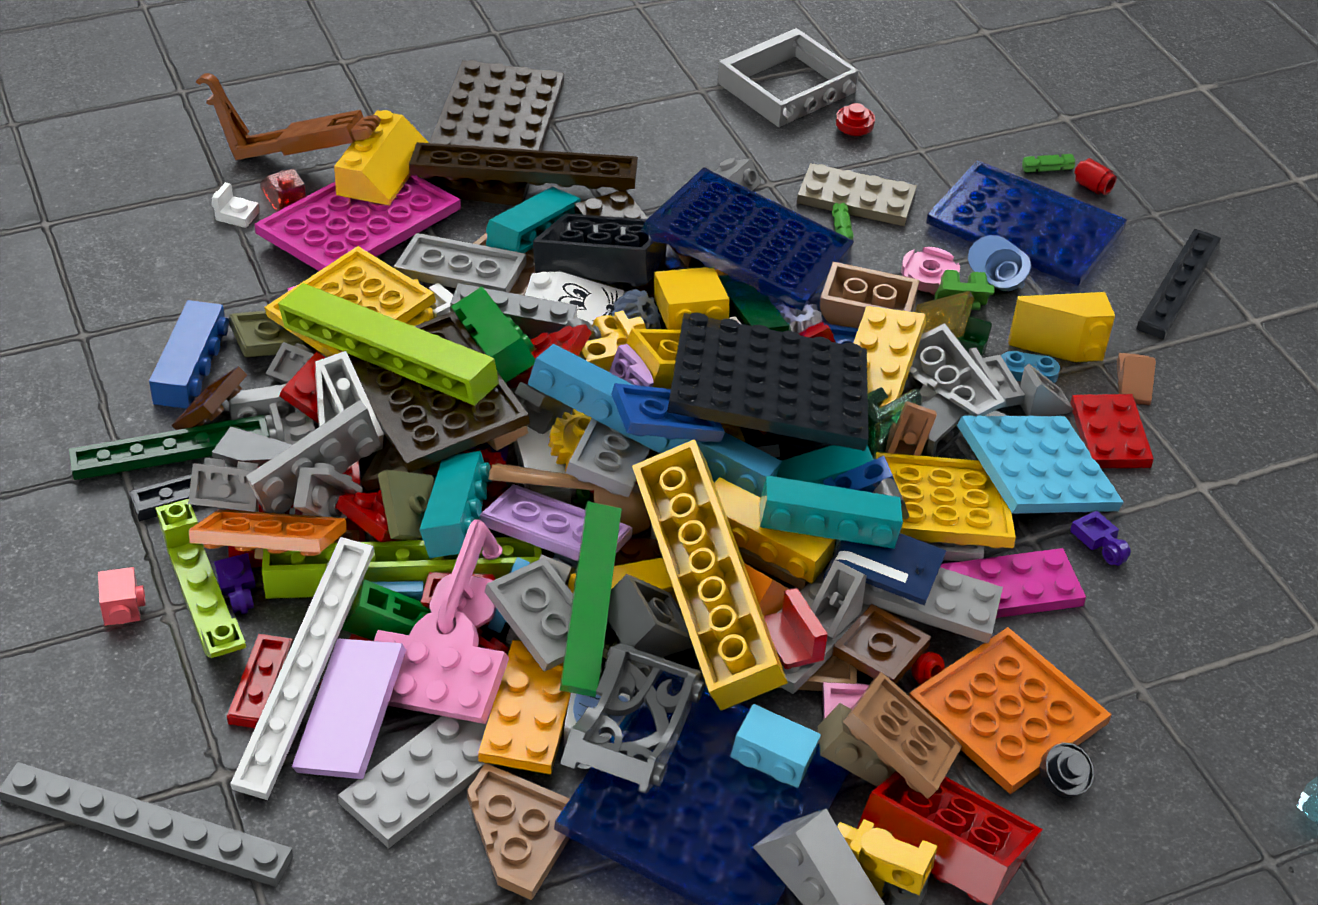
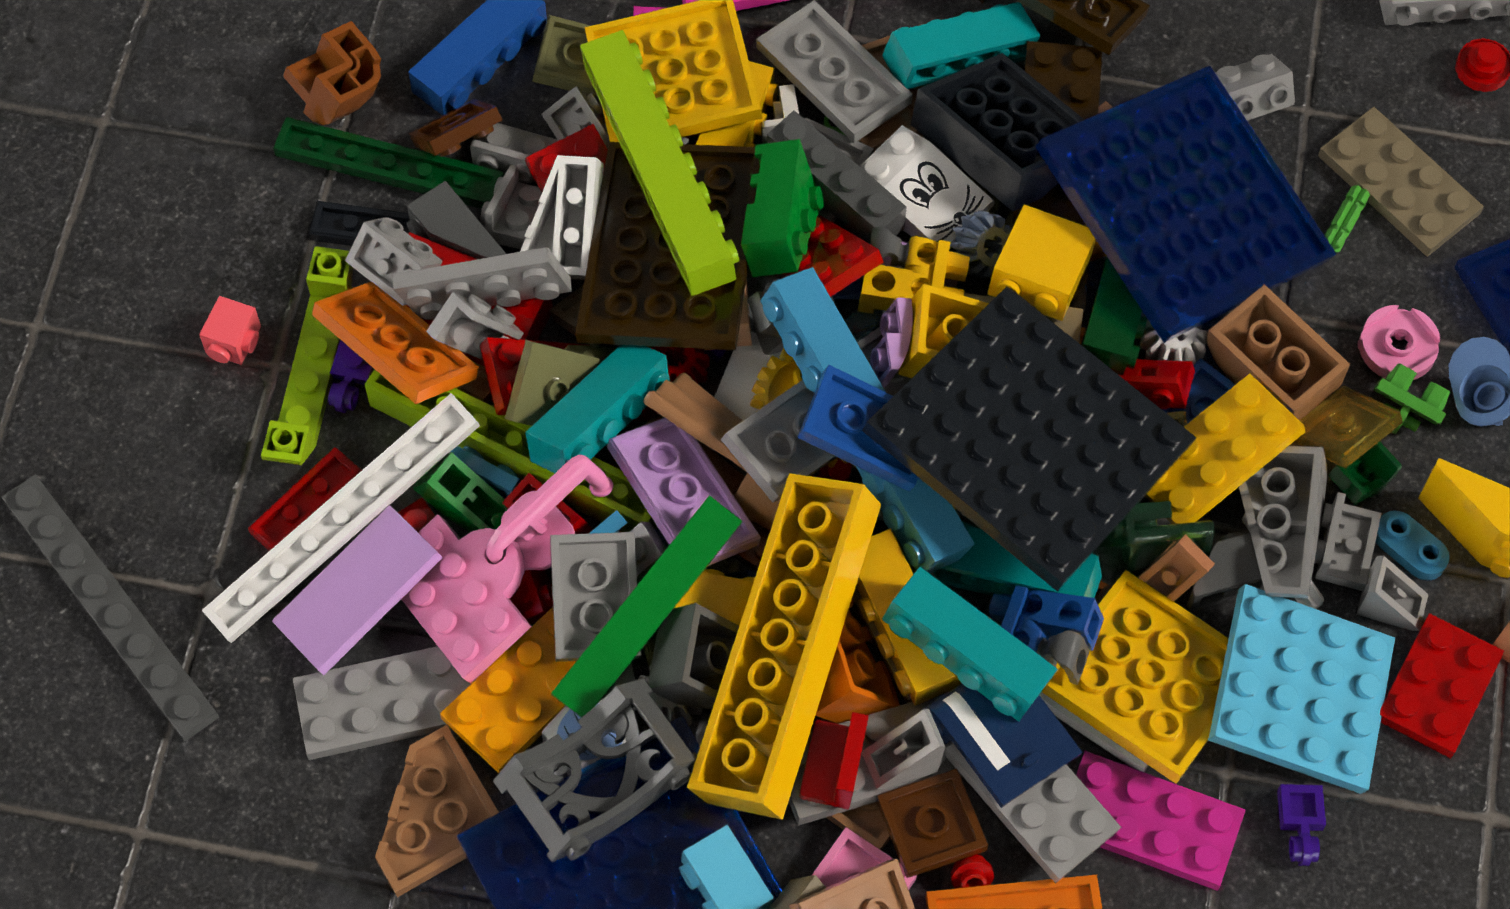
camera: 35 degrees right, 20 degrees up
(93, 406) = (337, 76): none -> dark orange brick

